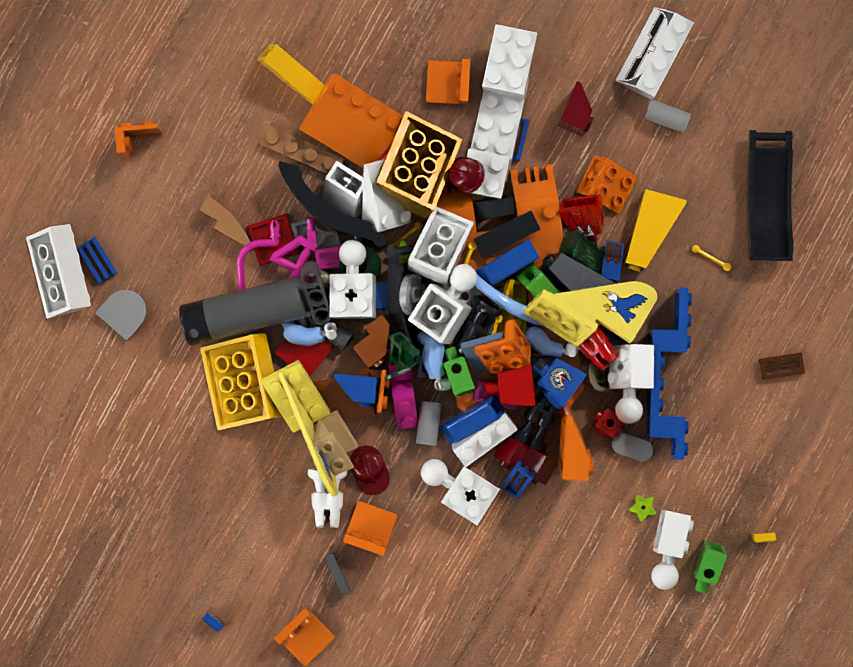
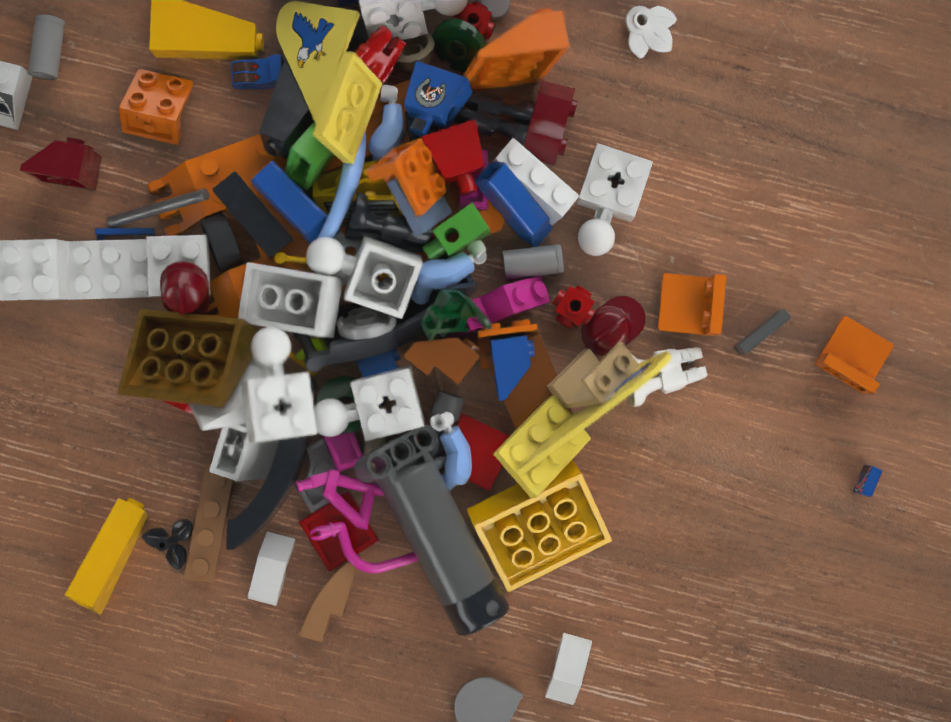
camera: 110 degrees left, 0 degrees up
(136, 376) = (568, 668): none -> white slope
(259, 186) = (271, 568): none -> white slope
(286, 122) = (159, 539): none -> black plant
(351, 122) = (150, 465): orange slope -> none
(396, 439) = (571, 318): none -> red brick
(407, 225) = (271, 348): none -> white brick
(448, 82) = (68, 347): orange bracket -> none
(523, 472) = (566, 118): blue tile -> none
(530, 175) = (158, 208): none -> flat silver bar
(572, 551) = (654, 31): none -> white plate
(581, 249) = (248, 114): clear green brick -> none
(583, 214) = (206, 121): red torso -> none
(595, 409) = (457, 31): none -> dark green tile

